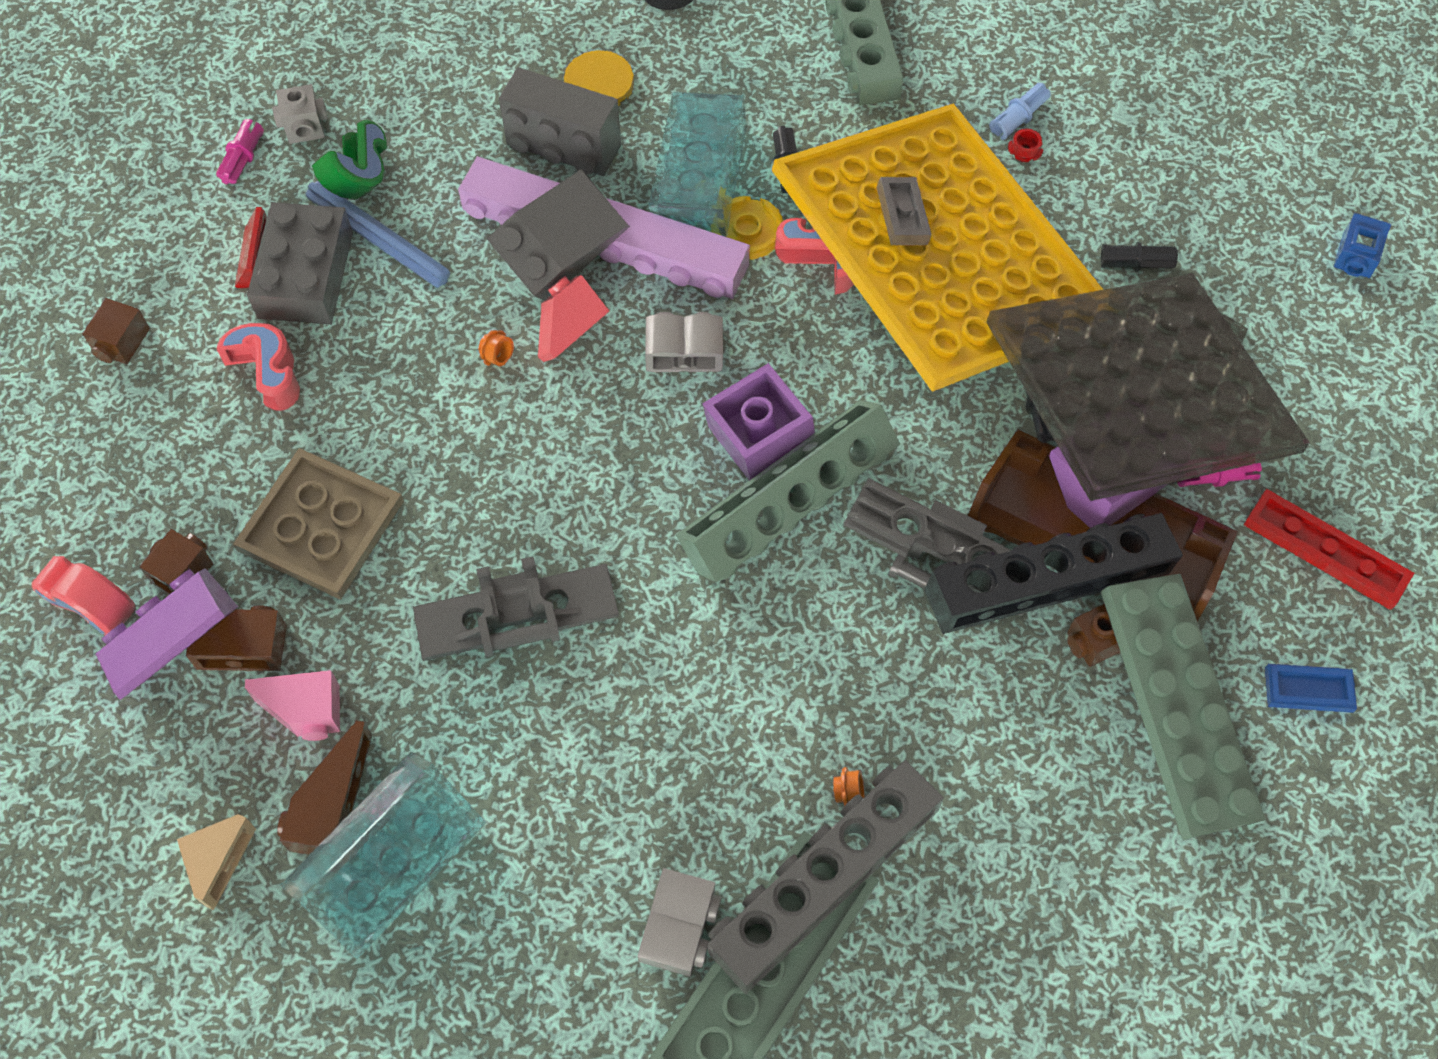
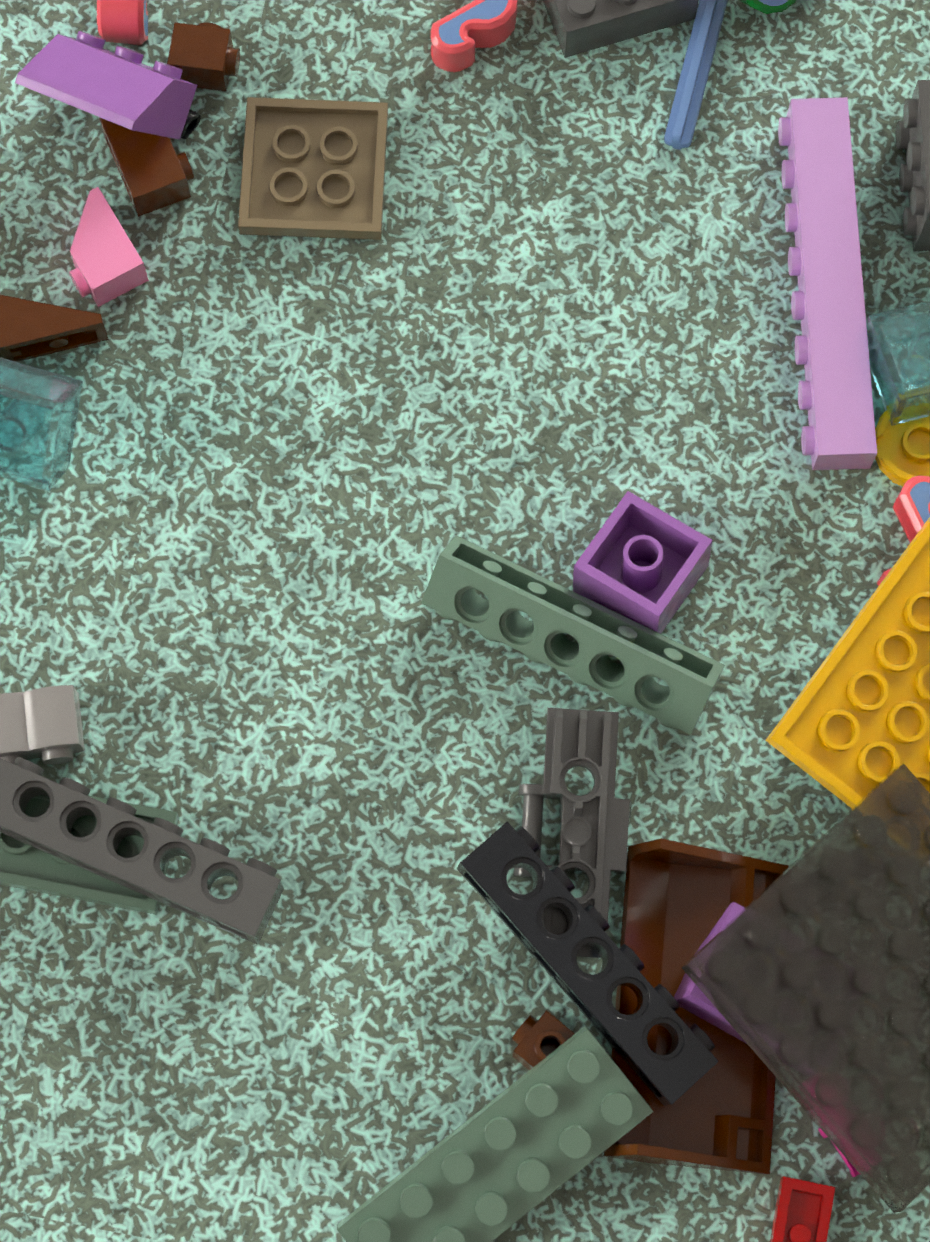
camera: 65 degrees right, 10 degrees up
(492, 345) = (613, 236): orange plate -> none
(513, 602) = (313, 406): dark grey piece -> none
(558, 233) = (776, 235): dark grey slope -> none
(567, 315) = (684, 297): coral slope -> none
(684, 343) = (716, 440): light grey brick -> none
(848, 785) = (246, 836): orange plate -> none

